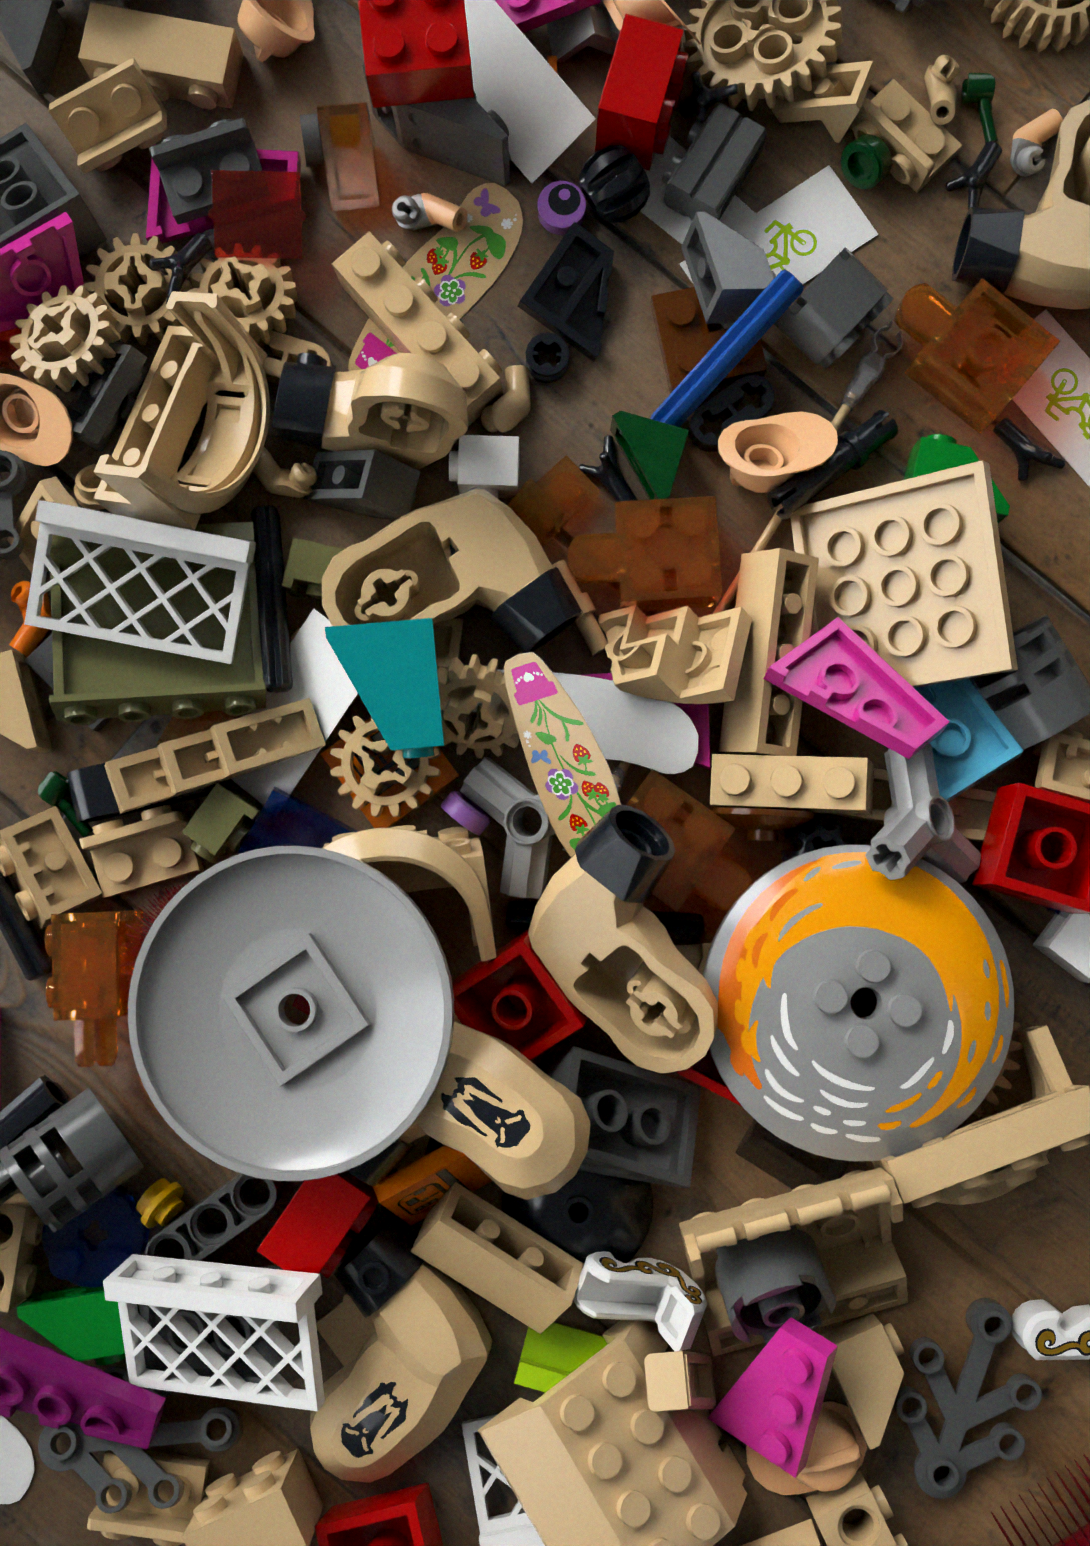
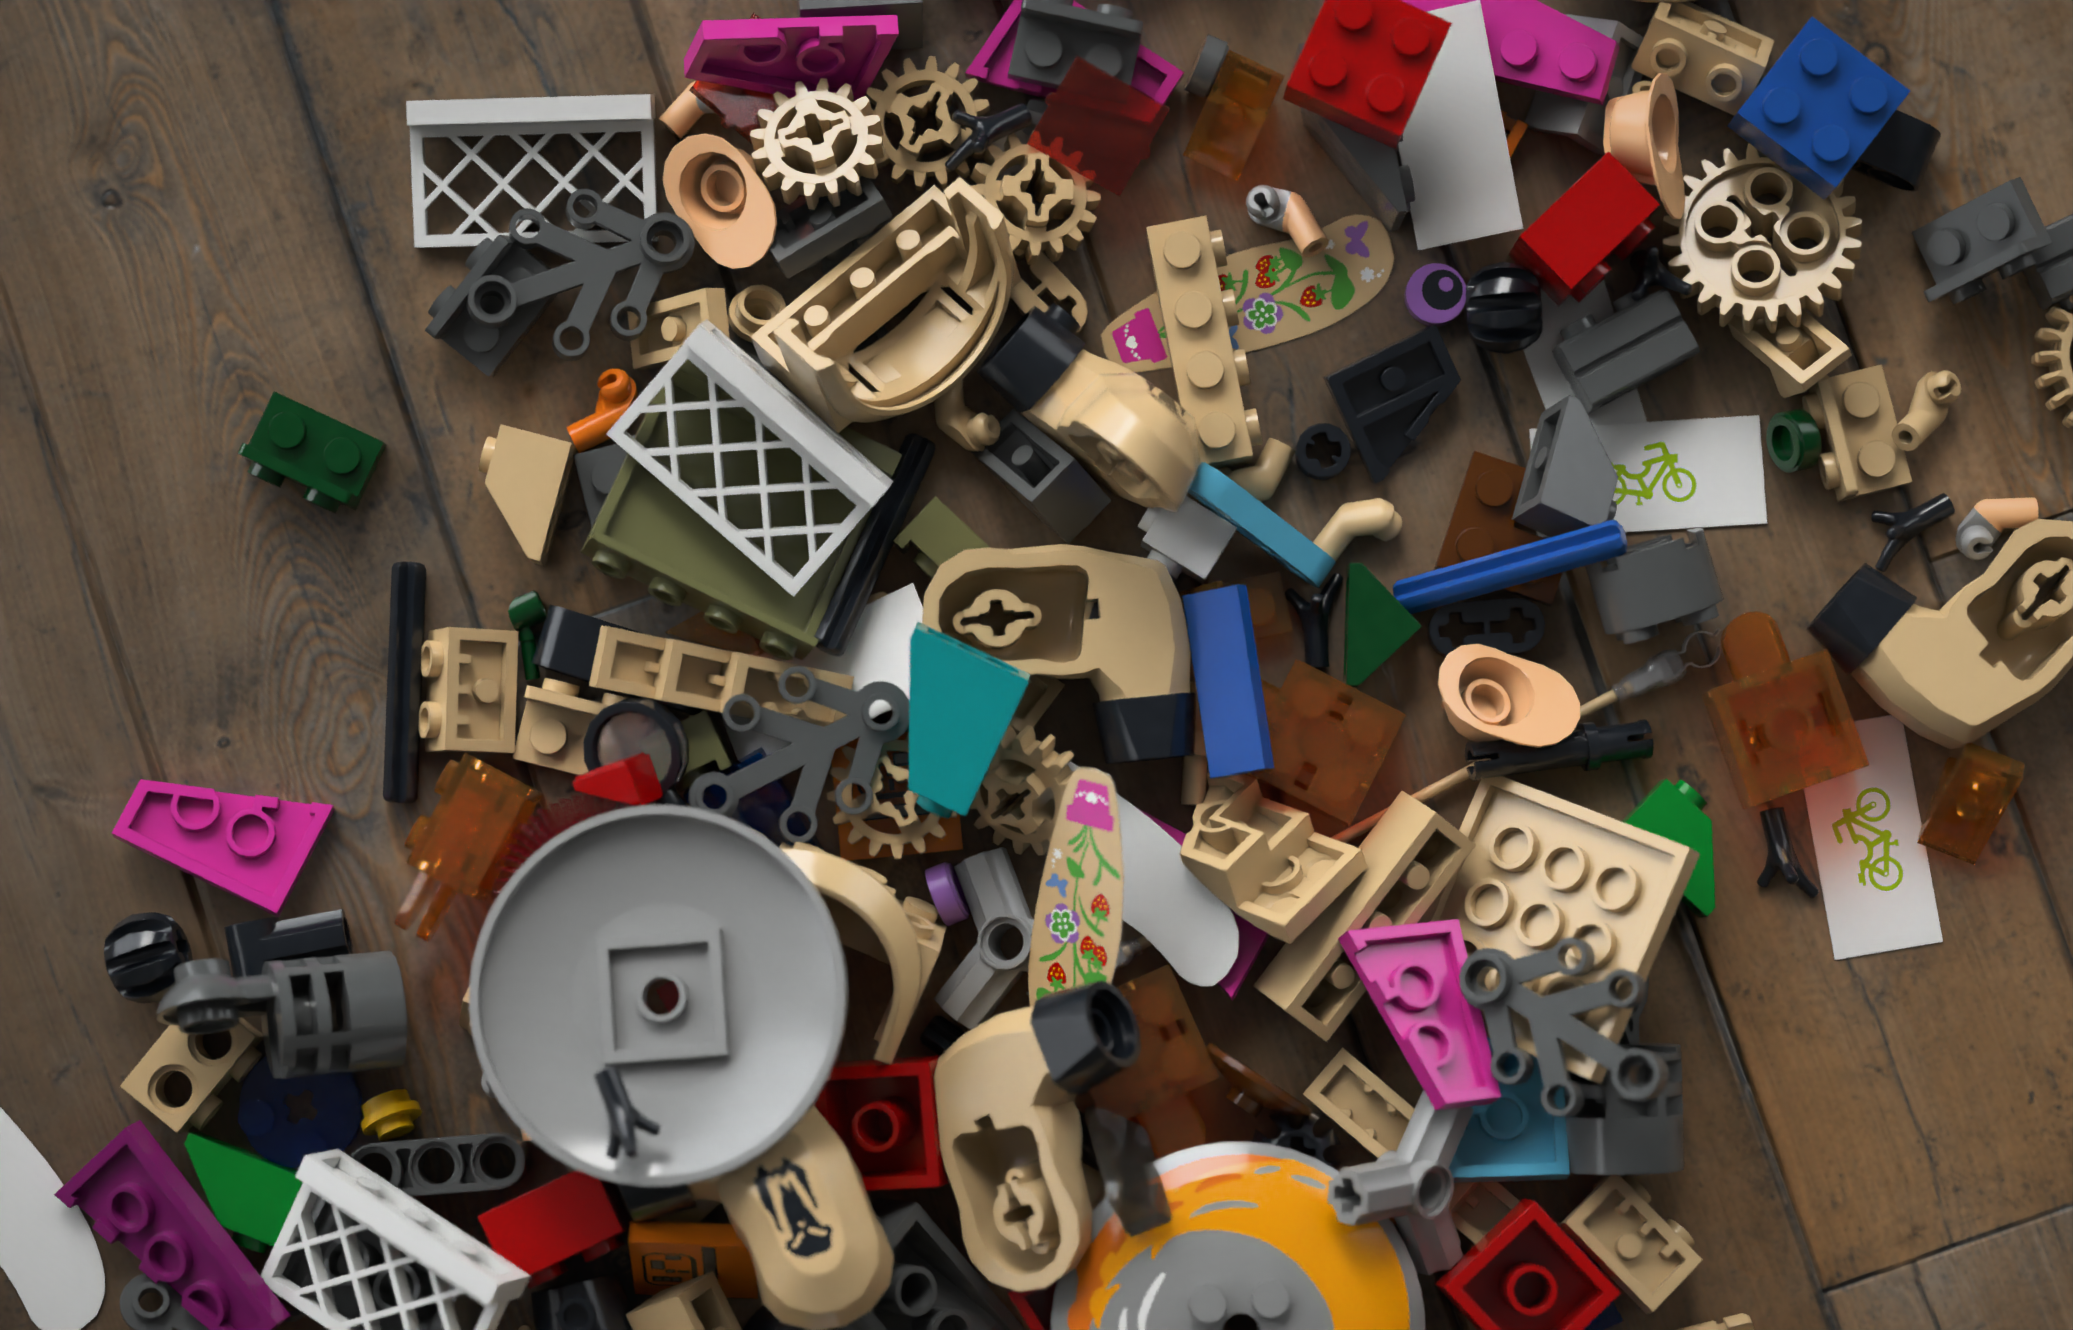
camera: 30 degrees right, 0 degrees up
(179, 866) = (625, 781): none -> red slope
(181, 839) = (640, 727): none -> piece
(304, 762) = (811, 747): none -> dark grey plant
(312, 1120) = (621, 1114): none -> black bar
(534, 426) = (1261, 525): none -> medium azure beam
(577, 544) = (1228, 681): none -> blue tile
(595, 391) = (1359, 519): none -> tan arm
(714, 934) = (1128, 1171): none -> clear smoke slope
(793, 783) = (1307, 1066): tan brick -> none
(957, 642) = (1554, 1020): none -> dark grey plant
(980, 89) = (1970, 431): dark green hand -> none

